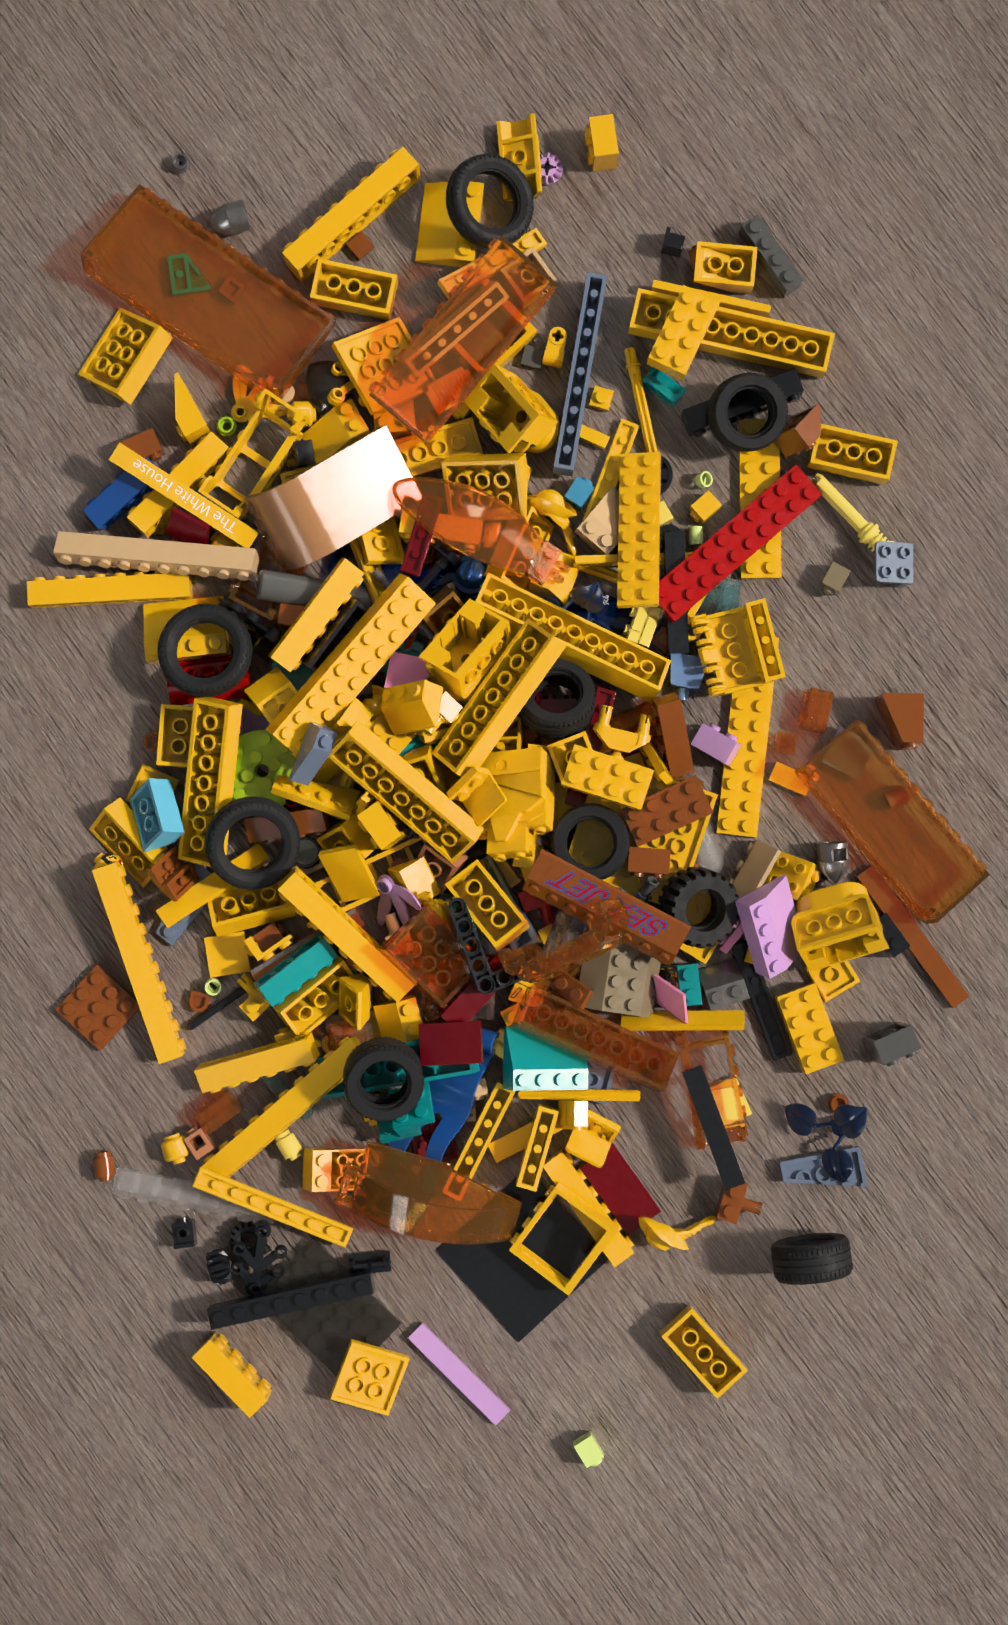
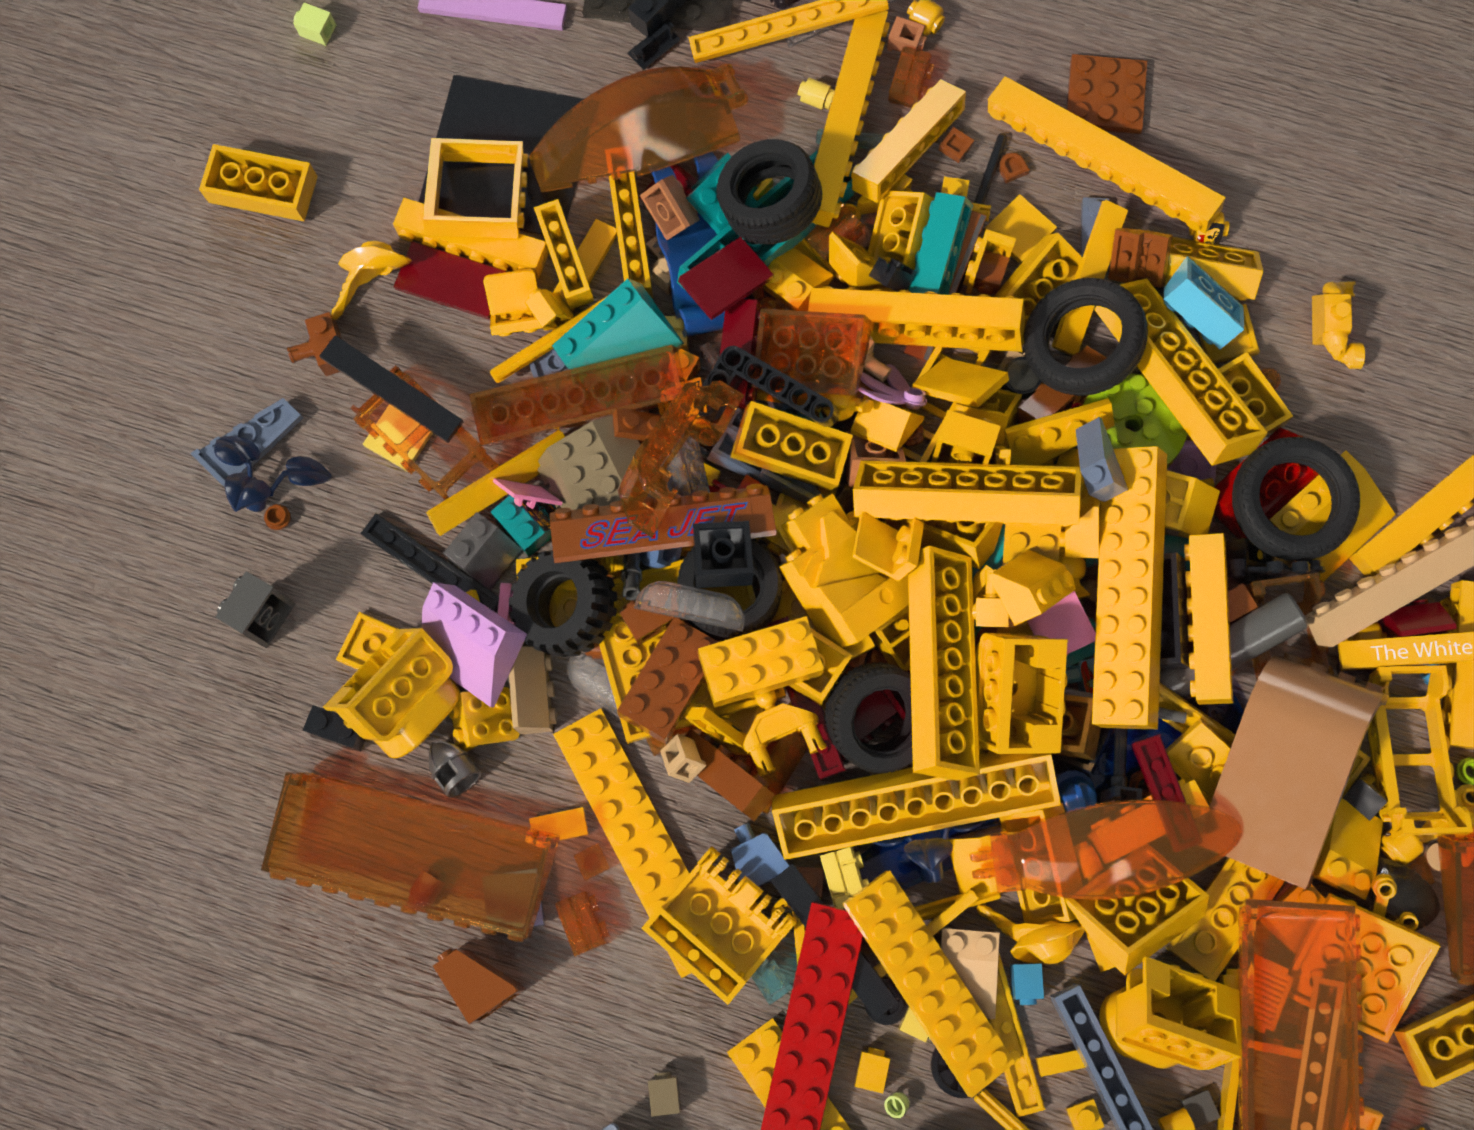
camera: 155 degrees right, 10 degrees down
(84, 747) = (1334, 323): none -> yellow torso
(209, 989) = (1010, 183): yellowish green hinge -> none
(224, 1042) = (956, 145): none -> dark orange plate
(324, 1167) = (767, 103): yellow slope -> none
(340, 973) = (893, 274): none -> black brick
(448, 1124) = (669, 207): none -> nougat slope
(584, 858) = (722, 554): none -> black slope
(623, 843) = (691, 604): none -> clear brick
(691, 760) = (682, 758): none -> tan brick
(695, 536) = (858, 1029): yellowish green hinge -> none
(716, 744) = (668, 802): lavender brick -> none
(809, 1028) = (359, 570): yellow brick -> none
(811, 1258) = (200, 334): black tyre -> none
(919, 944) = (310, 748): dark orange tile -> none

